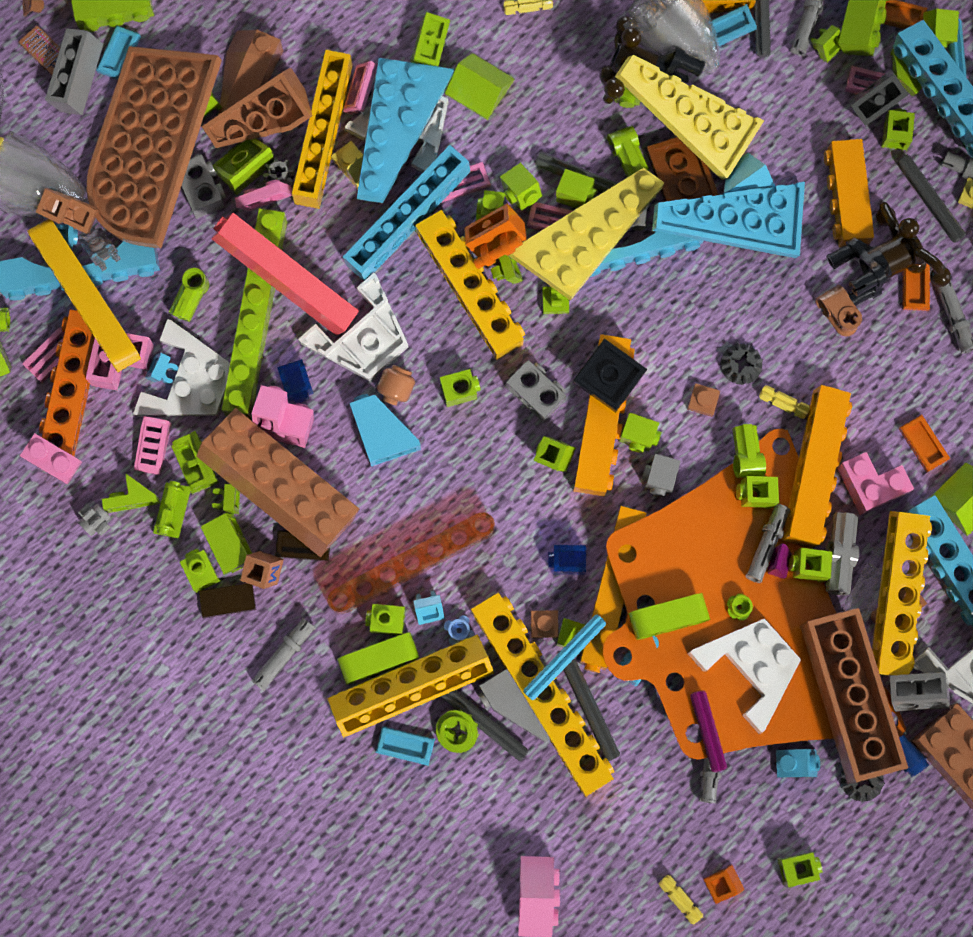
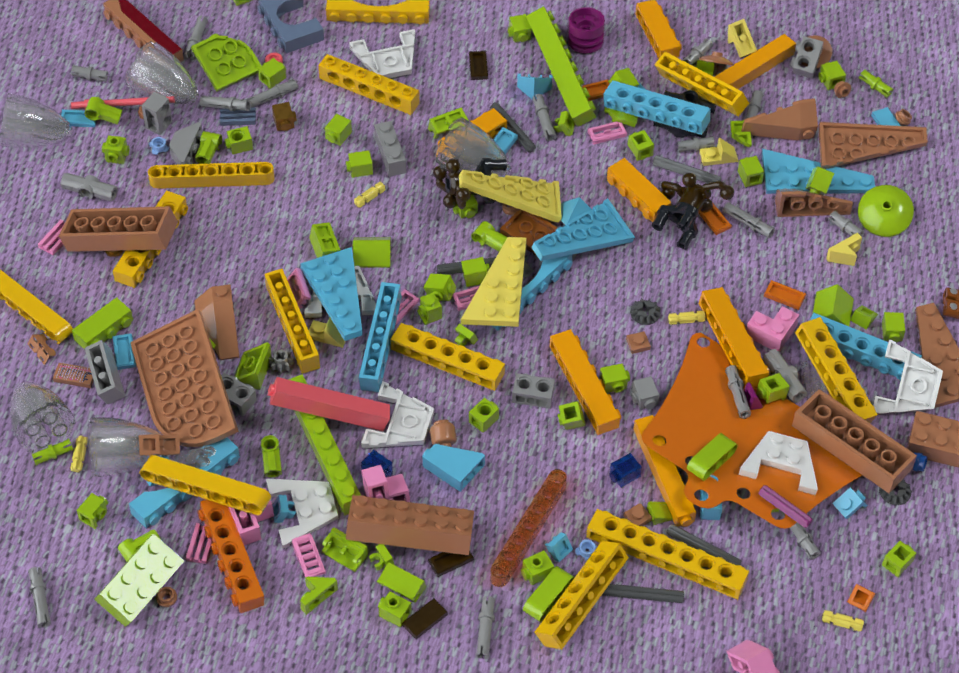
camera: 30 degrees left, 25 degrees down
(50, 459) = (249, 593): bright pink plate -> none
(94, 520) = (302, 619): light grey gear -> none
(172, 510) = (349, 585): lime hinge -> none
(256, 198) = (284, 370): bright pink plate -> none
(261, 569) = (436, 582): nougat brick -> none
(266, 111) = (249, 327): nougat wedge -> none
(405, 745) = (604, 635): medium azure tile -> none
(448, 737) = (621, 602): lime gear -> none
(495, 235) = (445, 316): orange brick -> none
(509, 702) = (652, 570): light grey slope -> none
(554, 302) = (506, 338): lime tile -> none
(564, 657) = (666, 518): medium azure axle -> none
(610, 375) = (574, 352): black plate -> none
(746, 606) = (749, 429): lime plate -> none
(748, 458) = (690, 354): lime piece -> none
(765, 488) = (707, 368): lime brick -> none
(838, 307) = (680, 251): nougat piece -> none
(878, 97) = (617, 132): dark grey brick -> none
(920, 691) = (891, 416): light grey brick -> none

